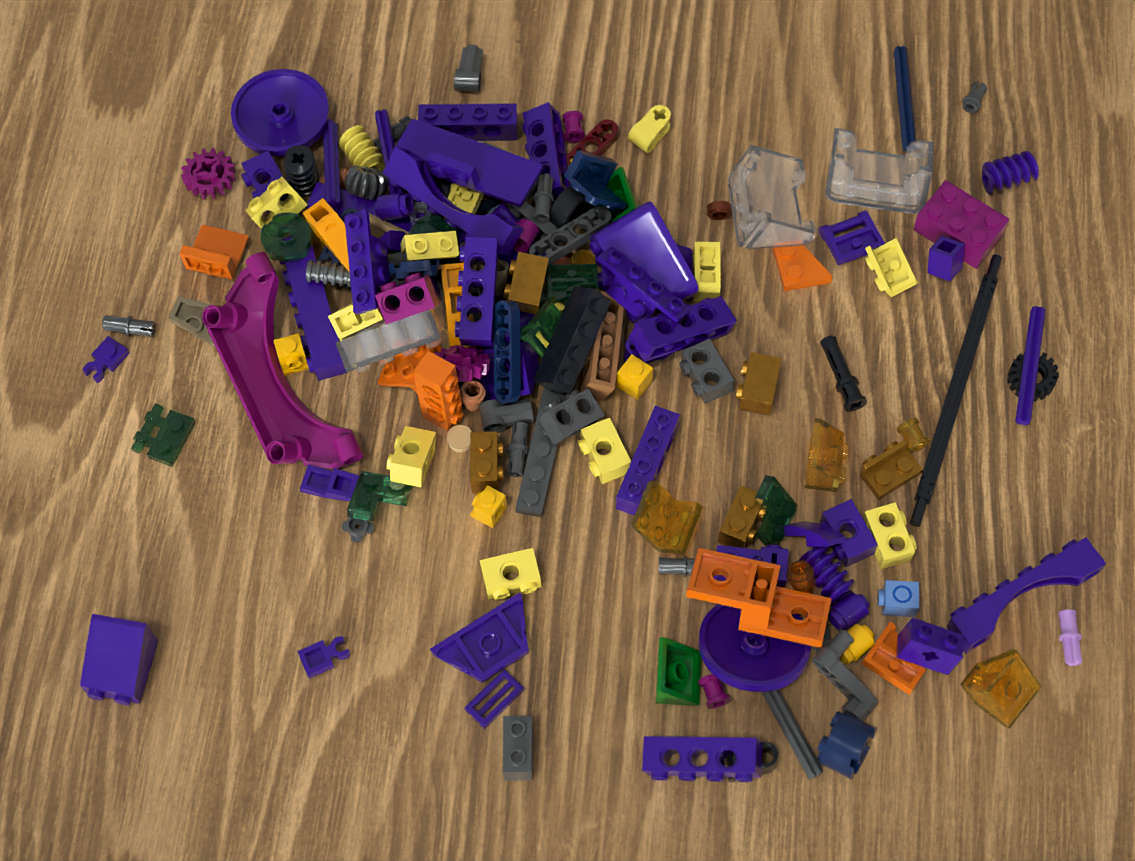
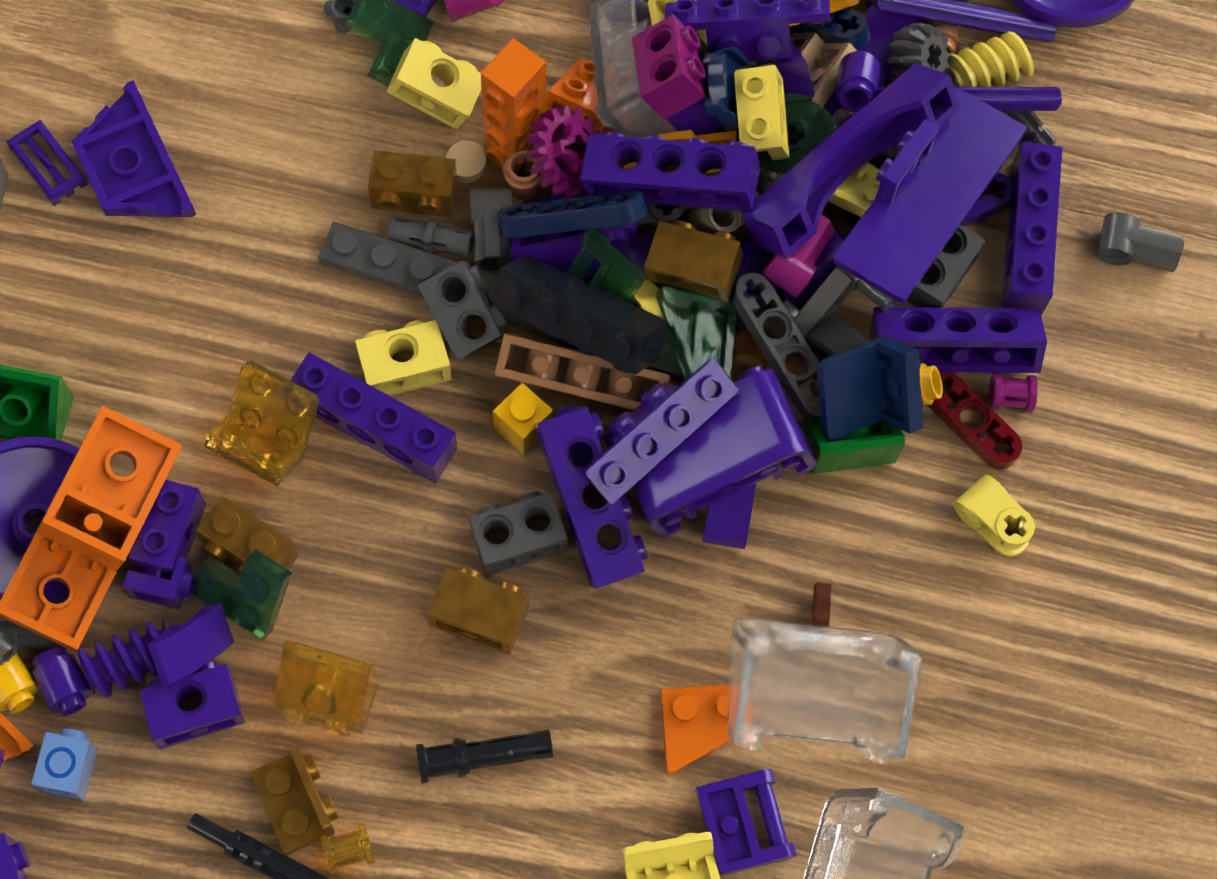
camera: 90 degrees right, 5 degrees up
(489, 506) = (339, 182): yellow brick -> none
(519, 562) = (230, 223): light yellow brick -> none
(543, 198) = (856, 309): dark grey axle -> none
(676, 566) = (193, 438): dark grey axle -> none
(707, 270) = (698, 557): light yellow brick -> none
(801, 576) = (122, 610): clear orange cone -> none
(894, 534) = (175, 757): light yellow brick -> none

